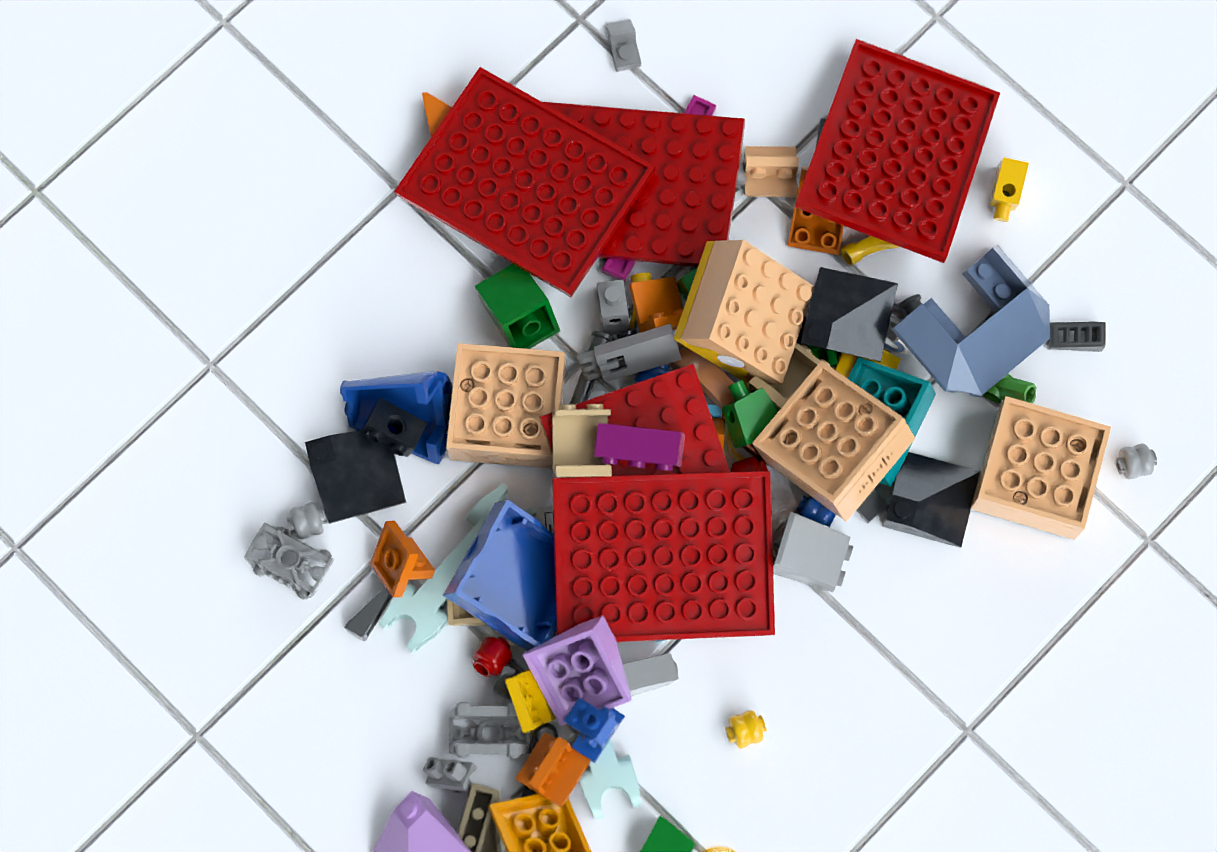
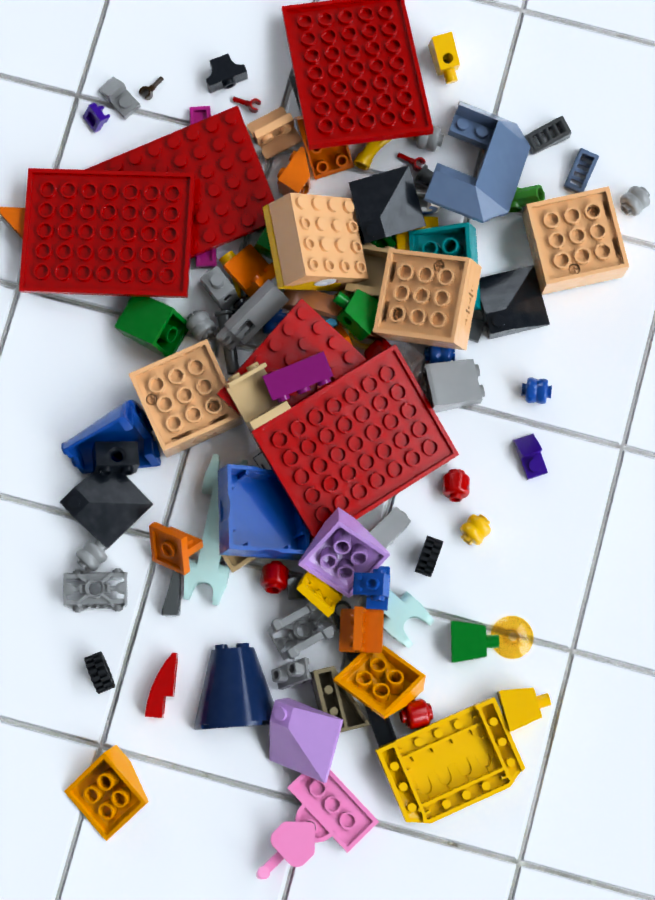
camera: 30 degrees left, 5 degrees up
(174, 790) = (108, 792): none -> light orange slope
(240, 652) = (99, 672): none -> black tyre
(300, 708) = (163, 687): none -> red slope
(376, 756) = (234, 690): none -> dark blue cone
(569, 336) = (200, 325): none -> light grey piece
(584, 51) = (94, 117): none -> dark purple tile
(662, 53) = (151, 88): none -> dark brown hand
(676, 729) = (429, 556): none -> black tyre
(752, 79) = (225, 73): none -> black brick
(752, 667) = (456, 485): none -> red head
(759, 123) = (248, 103): none -> red hand
(766, 228) = (296, 175): none -> orange slope
(855, 683) = (530, 456): none -> dark purple slope
(903, 612) = (536, 390): none -> blue piece
(907, 283) = (412, 161): none -> red hand
(939, 271) = (430, 141): none -> light grey piece
(1111, 382) = (589, 155): none -> sand blue slope

